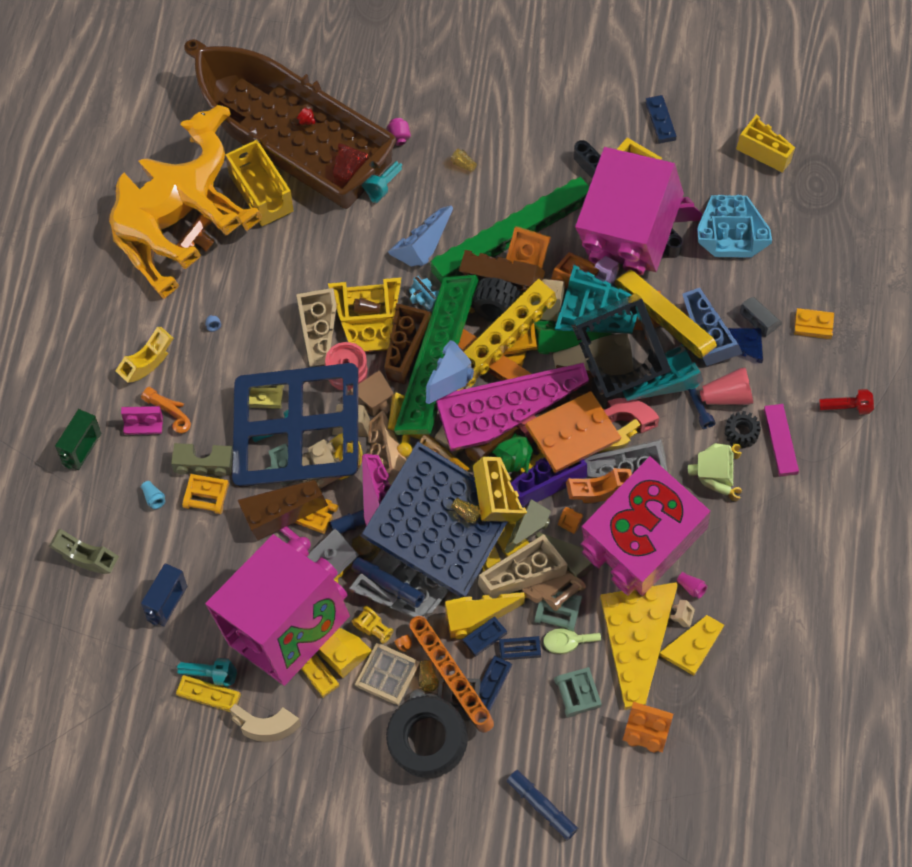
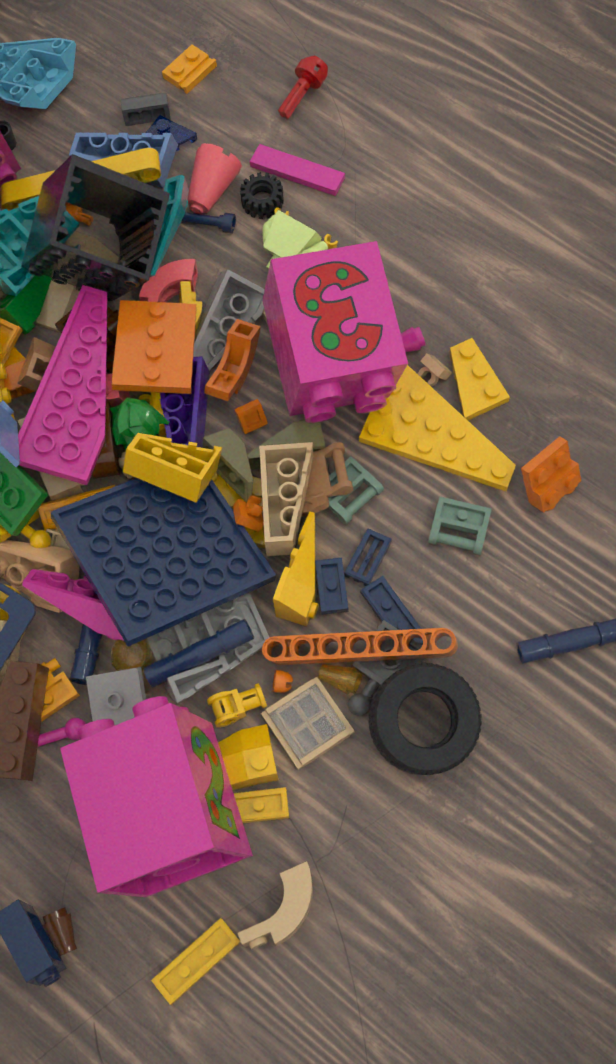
camera: 55 degrees left, 5 degrees up
(182, 608) = (60, 930): none -> reddish brown cone
(219, 671) = (182, 925): teal piece -> none
(466, 510) = (175, 509): clear yellow cone -> none
(496, 555) = (249, 513): none -> orange tile
(516, 370) = (36, 364): none -> medium nougat slope
(565, 641) = (389, 505): yellowish green piece -> none

